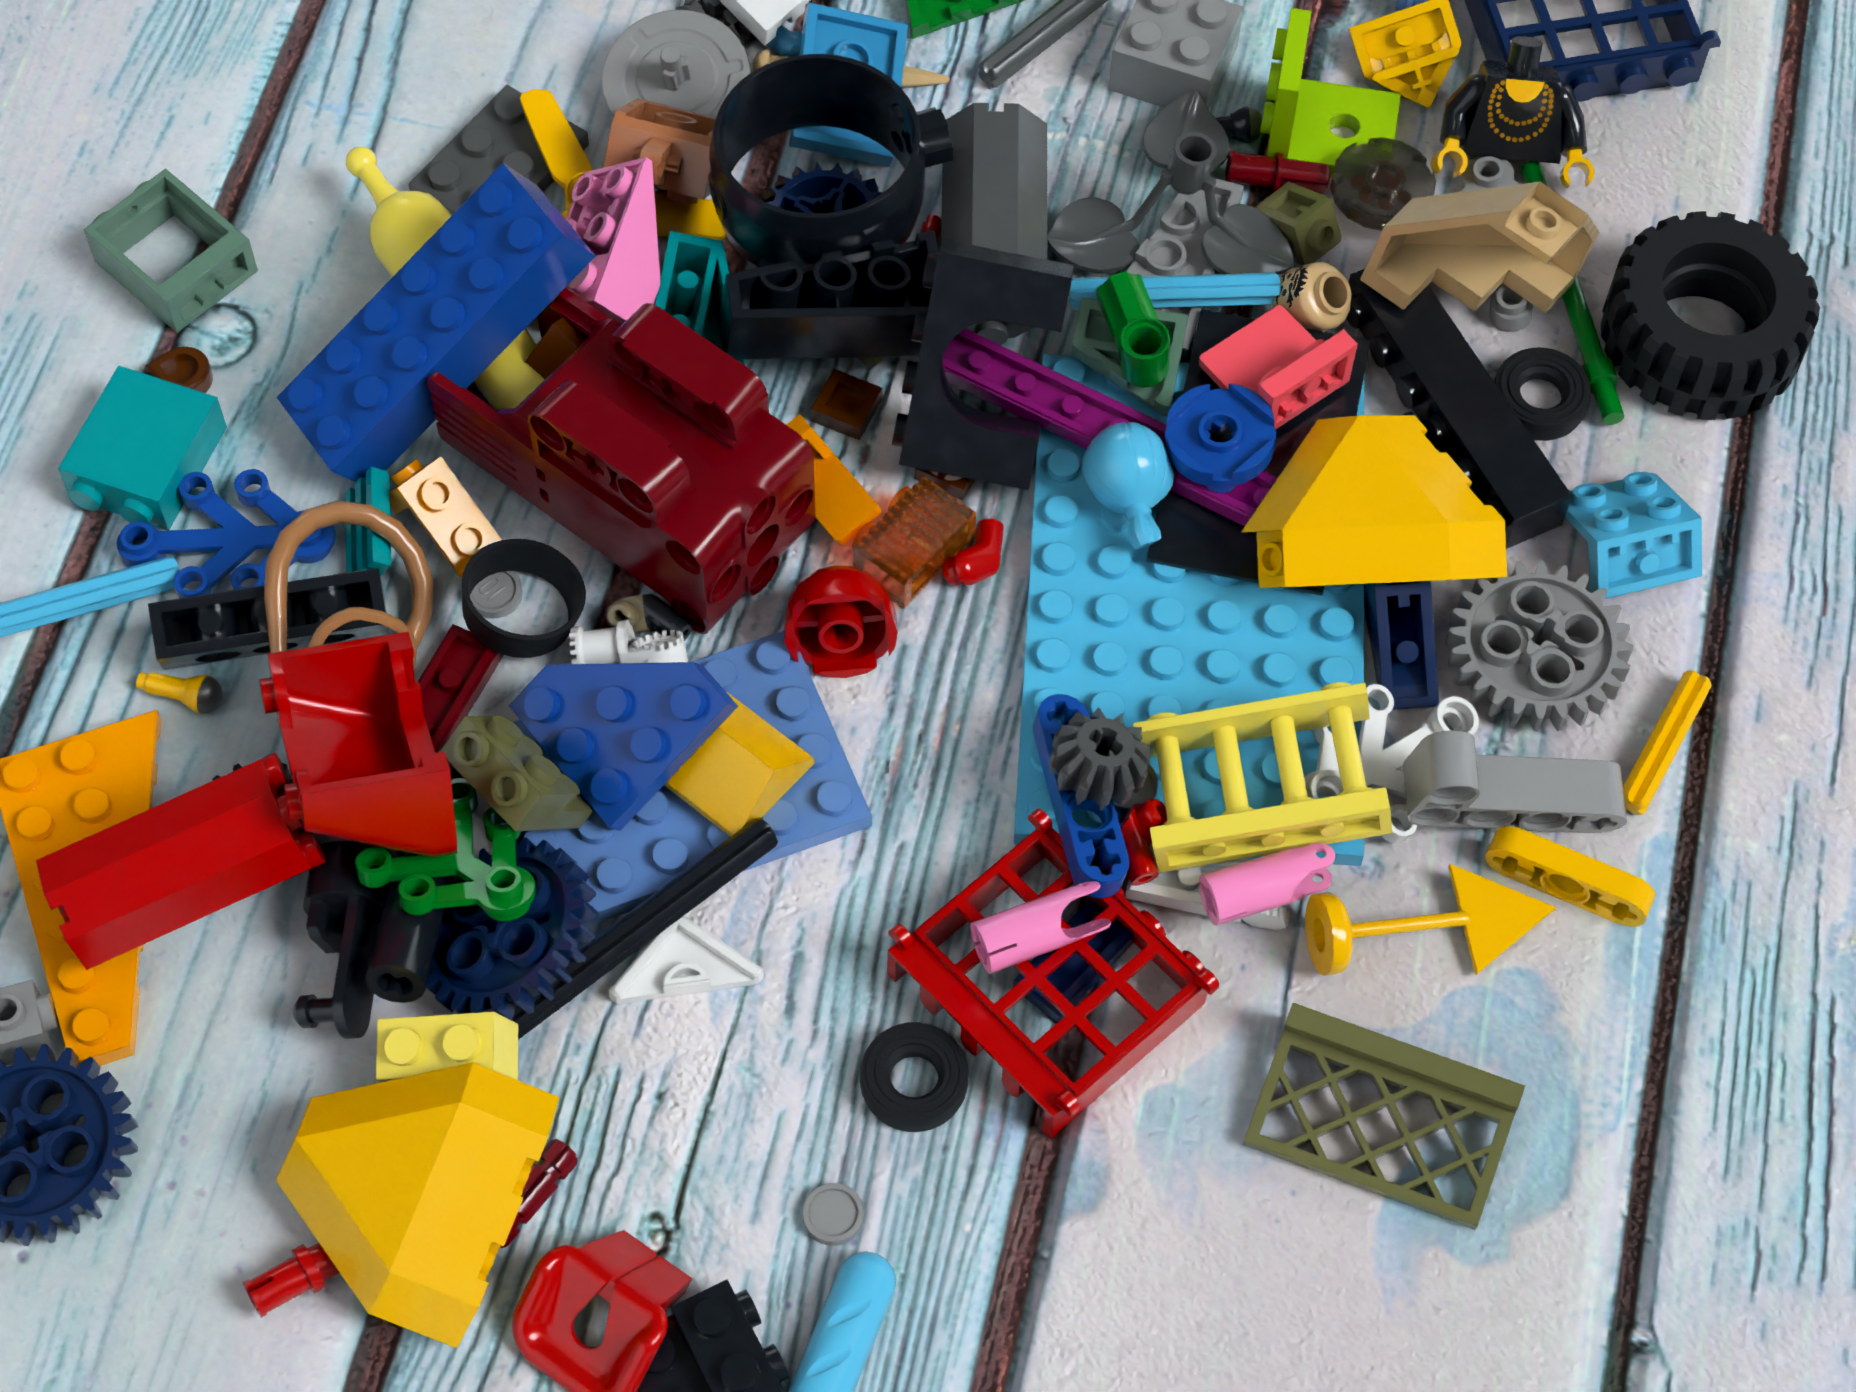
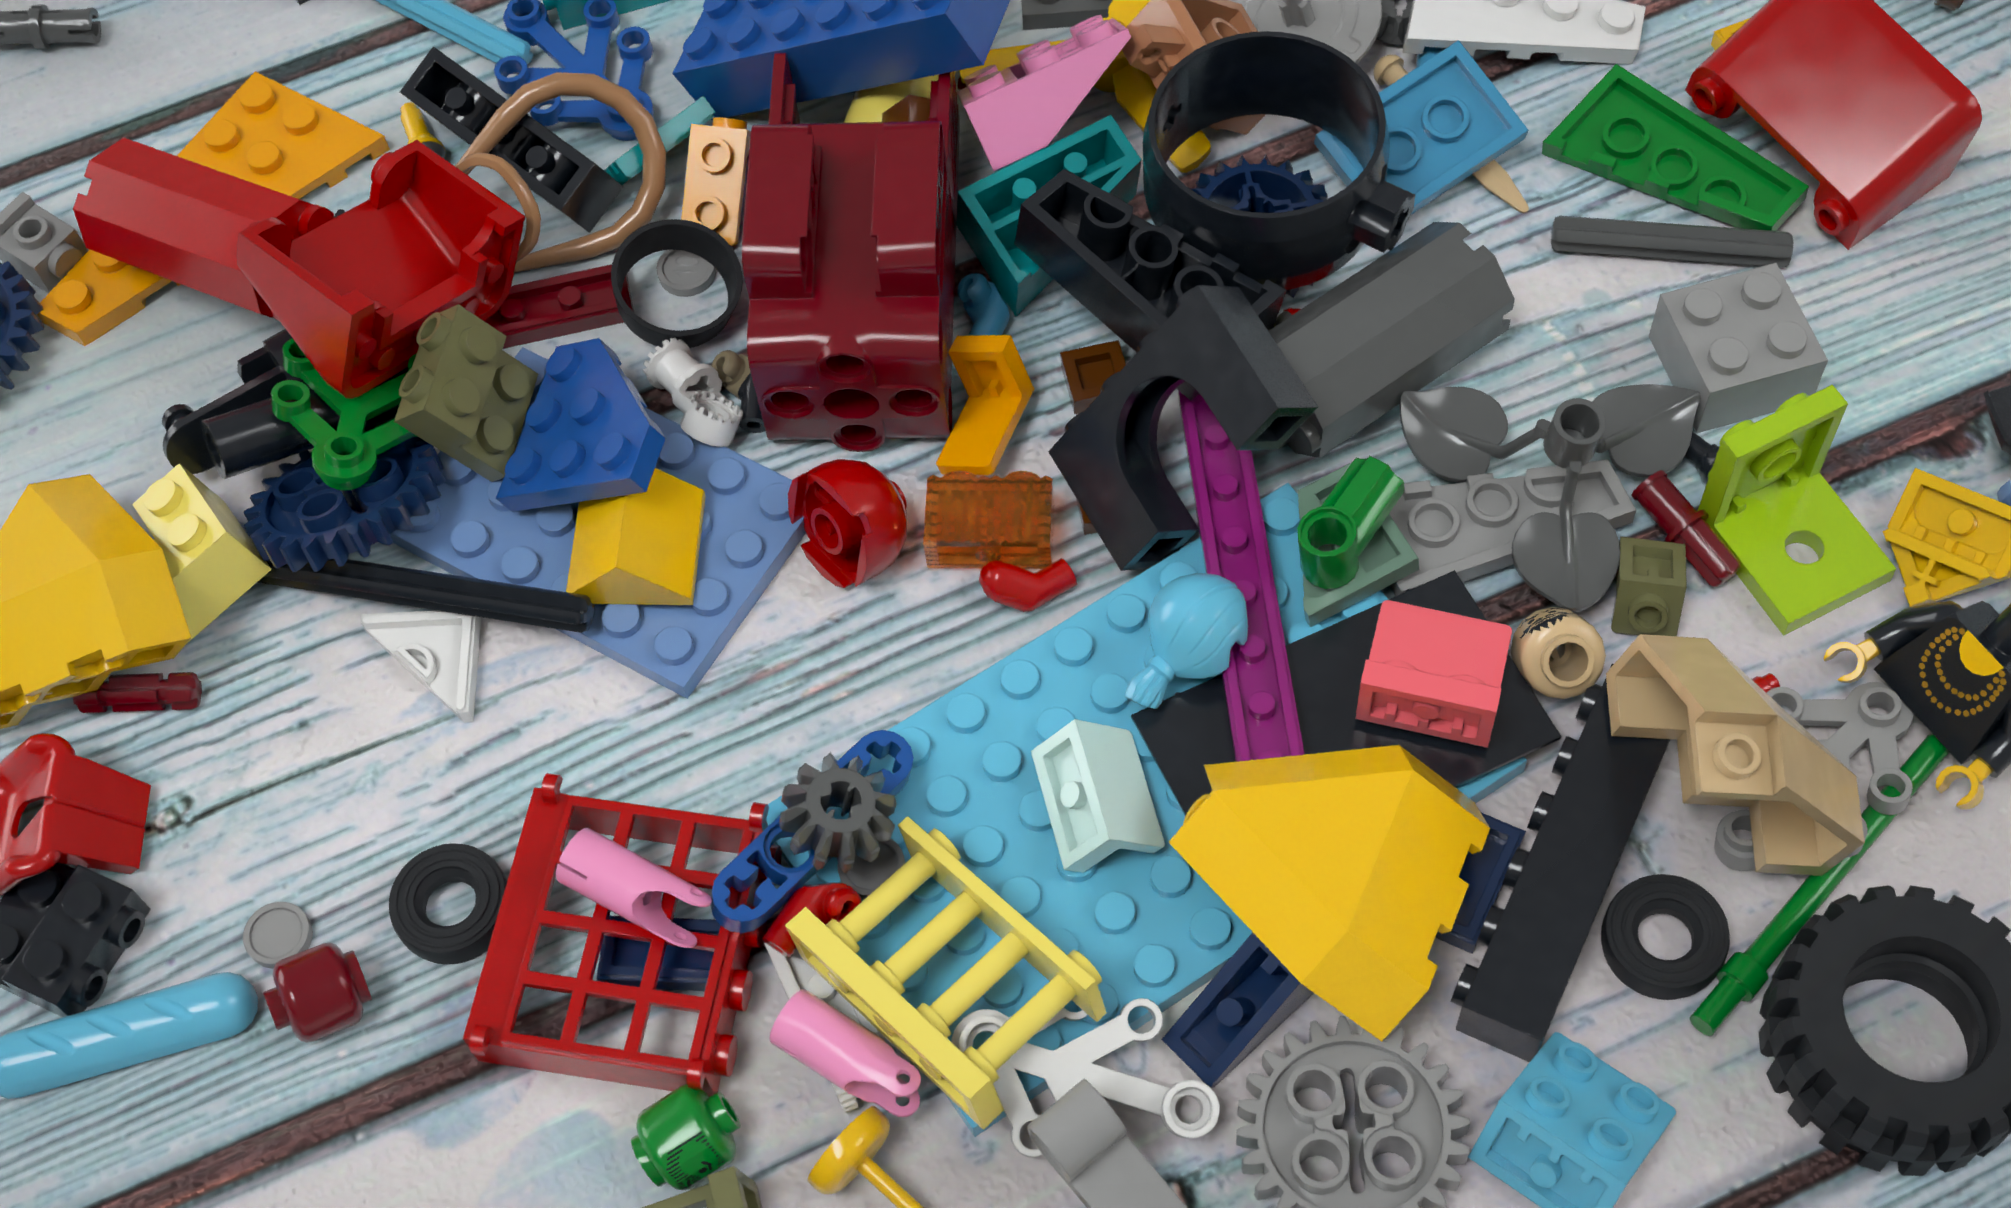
camera: 60 degrees right, 0 degrees up
(921, 1201) = (317, 992): none -> dark red head
(1193, 289) = (1461, 544): medium azure axle -> none
(1194, 617) = (1095, 794): none -> light aqua panel
(1213, 463) = (1302, 707): blue plate -> none
(1233, 1029) = (685, 1137): none -> green head
(1379, 180) = (1765, 622): clear smoke tile -> none

